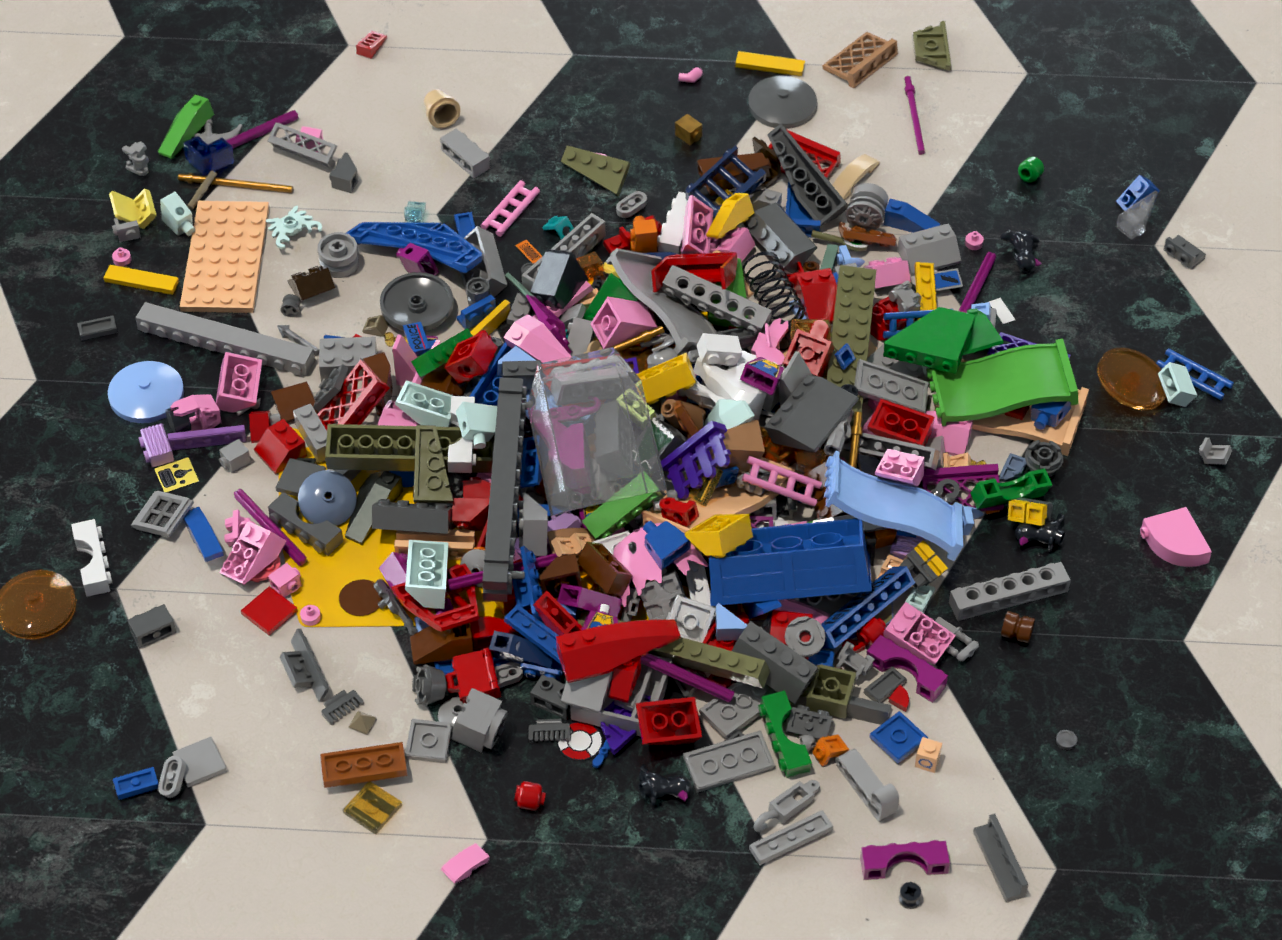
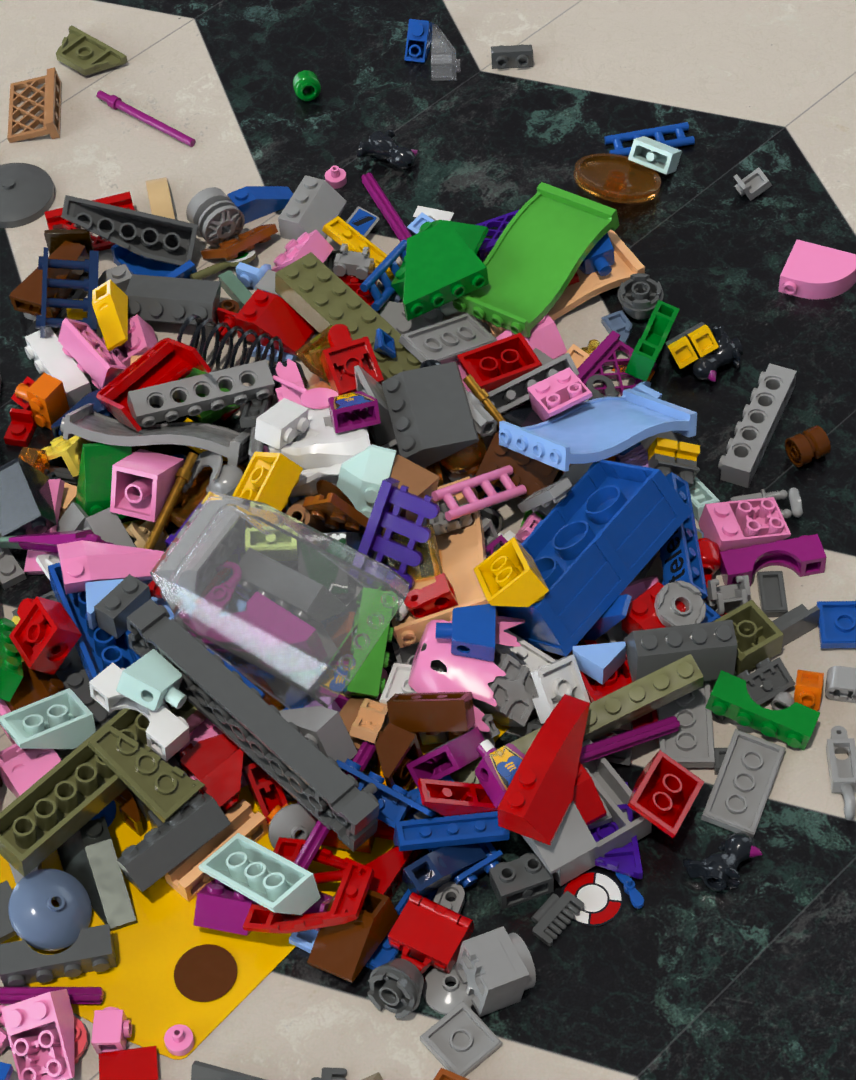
camera: 45 degrees left, 0 degrees up
(393, 604) = (257, 945): dark grey piece -> none
(529, 795) = (626, 993): red head -> none
(812, 514) = (545, 496): none -> light grey plate
(900, 698) = (799, 592): red tile -> none

